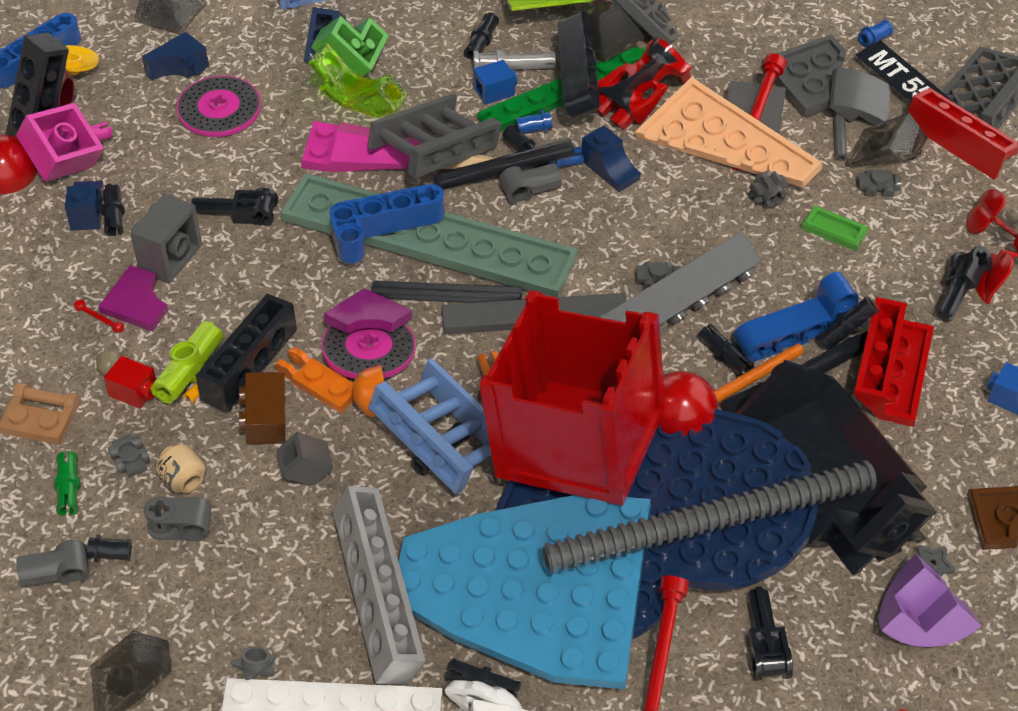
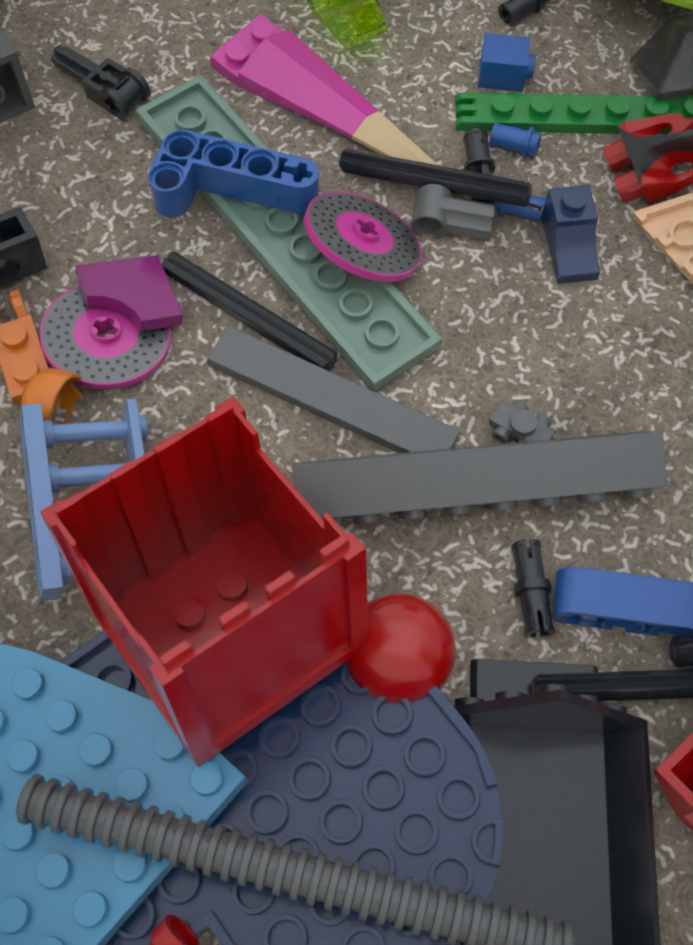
camera: 30 degrees right, 15 degrees up
(432, 152) = (371, 123): dark grey fence -> none
(488, 215) = (362, 236): none -> piece
(517, 61) = (551, 47): light grey pin -> none
(578, 65) = (614, 88): black beam -> none
(757, 373) = (546, 645): orange bar -> none

